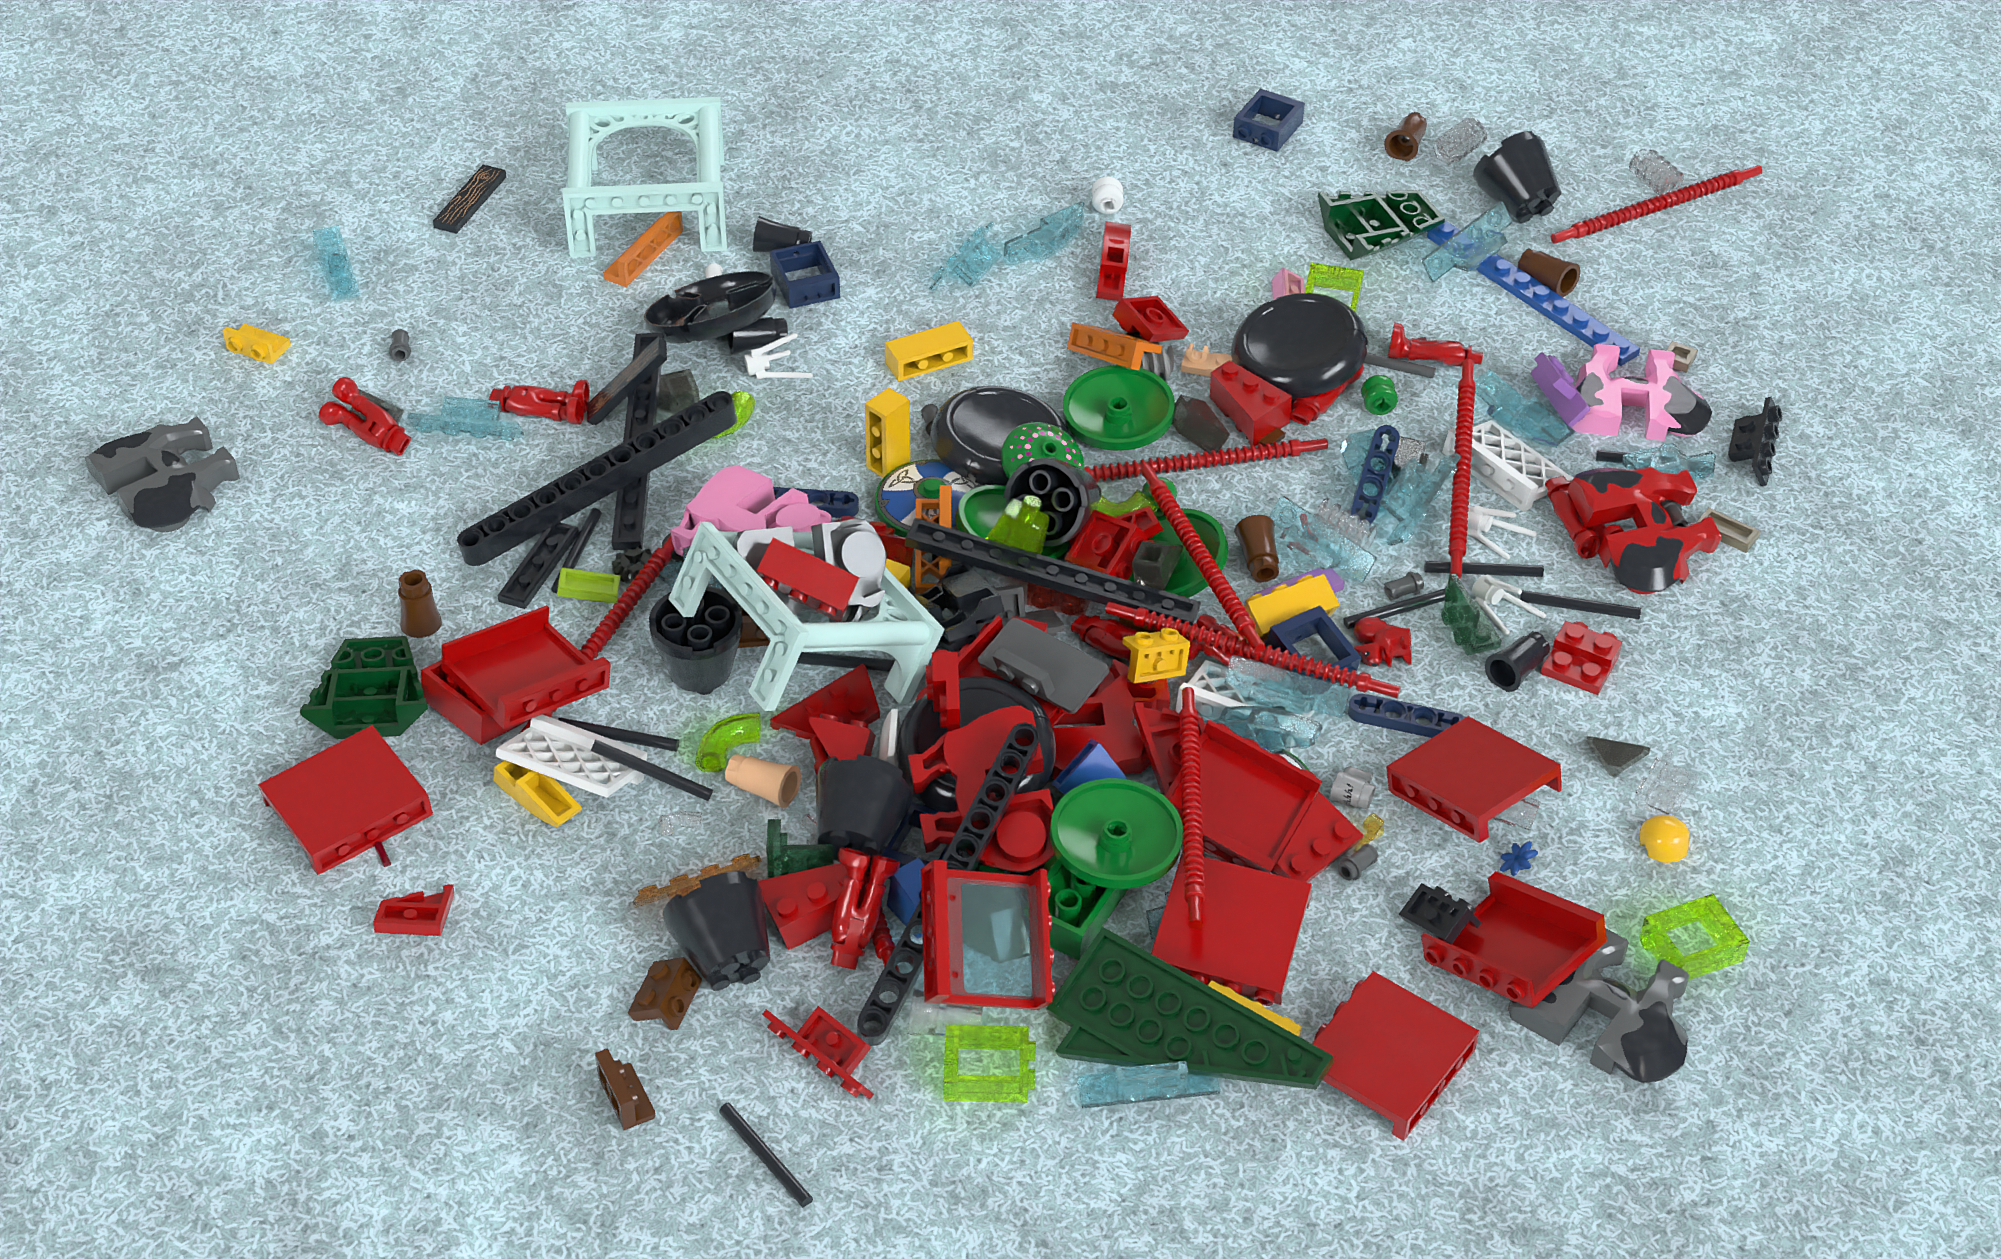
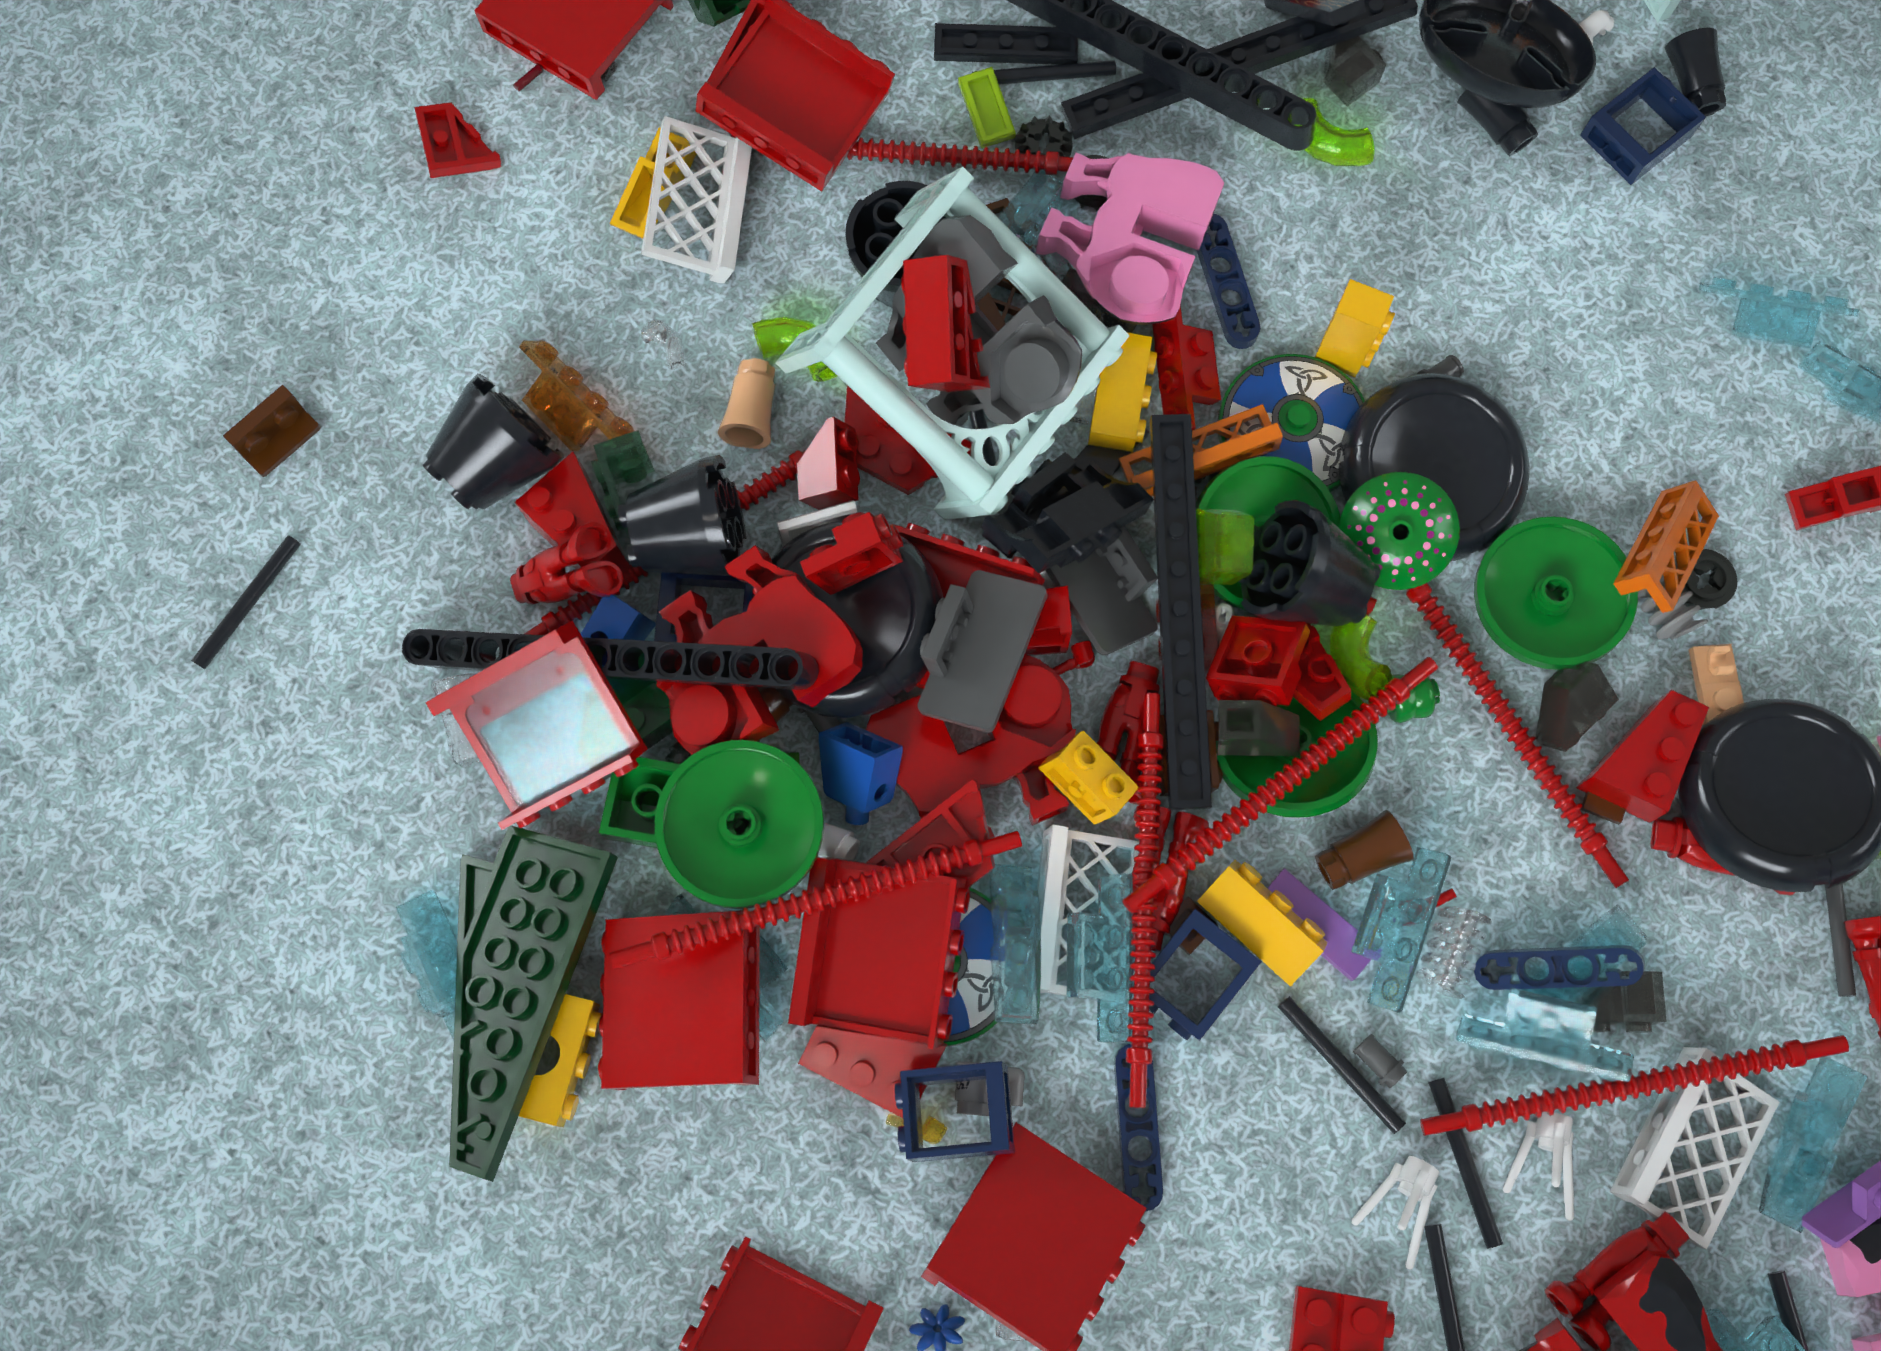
camera: 70 degrees right, 30 degrees up
(626, 735) = (775, 231): black bar -> none
(651, 770) = (711, 284): black bar -> none
(666, 992) = (412, 422): reddish brown bracket -> none
(758, 361) = (1450, 138): white plant -> none
(830, 1042) = (389, 610): red bracket -> none
(928, 350) = (1565, 323): yellow brick -> none
(988, 1087) = (404, 750): clear neon green window -> none
(1150, 318) = (1755, 578): red plate -> none
(1352, 866) = (862, 1125): dark grey pin -> none
(1376, 758) = (999, 1105): none -> dark blue window
(1379, 395) = (1751, 930): green piece -> none
(1382, 642) = (1262, 1067): red animal -> none
(1394, 1050) = (562, 1238): red panel -> none
(1438, 913) = (797, 1251): black bracket -> none
(1467, 620) = (1342, 1170): clear green bracket -> none
(1514, 663) = (1292, 1252): black plant -> none

